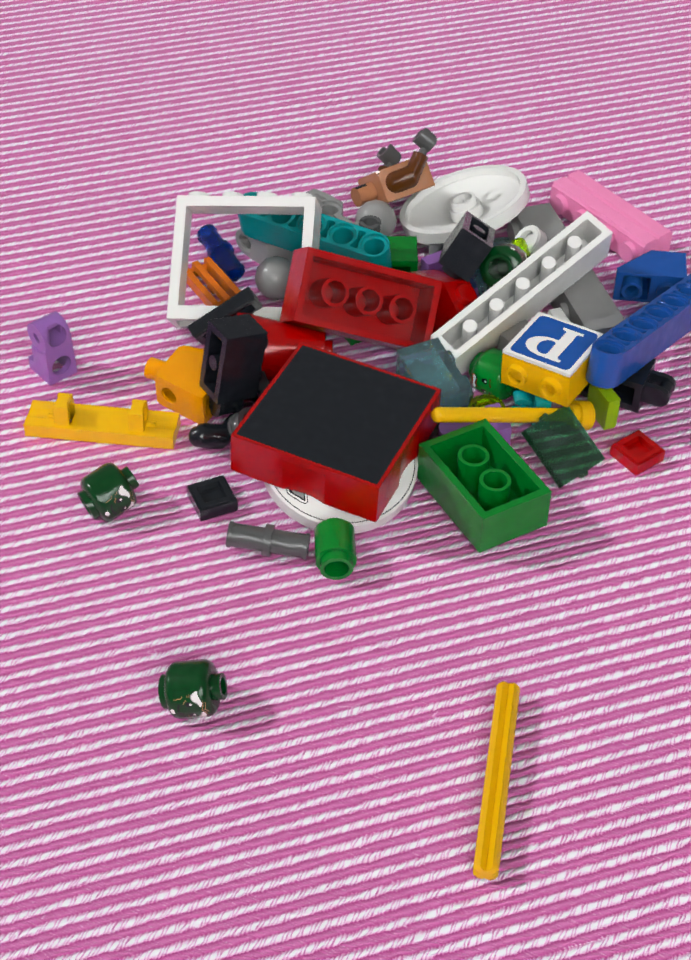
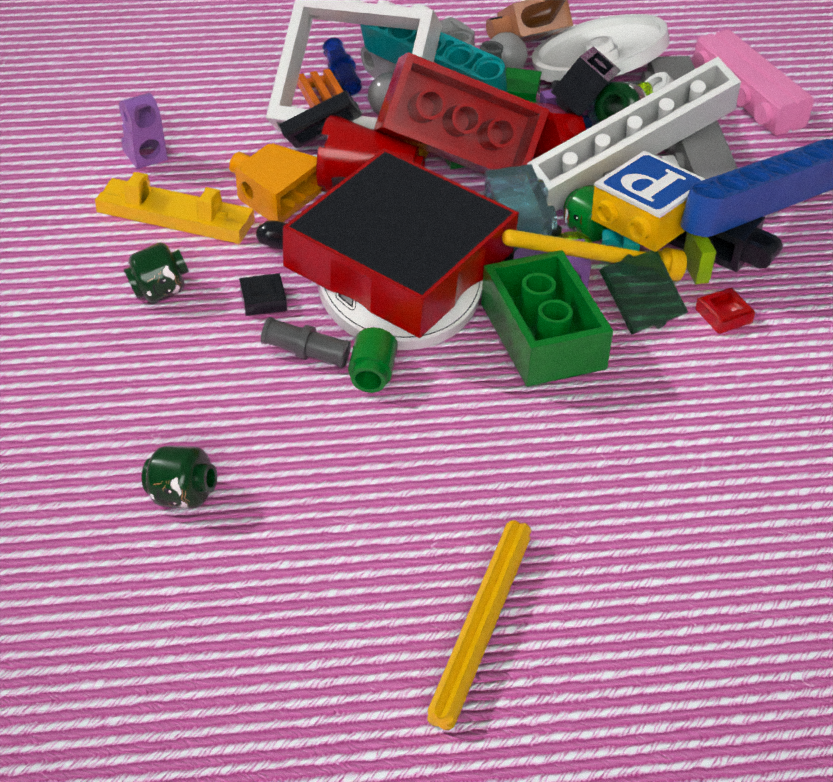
camera: 10 degrees right, 0 degrees up
(232, 362) = (310, 158): black brick -> none
(649, 275) = (777, 136): blue slope -> none

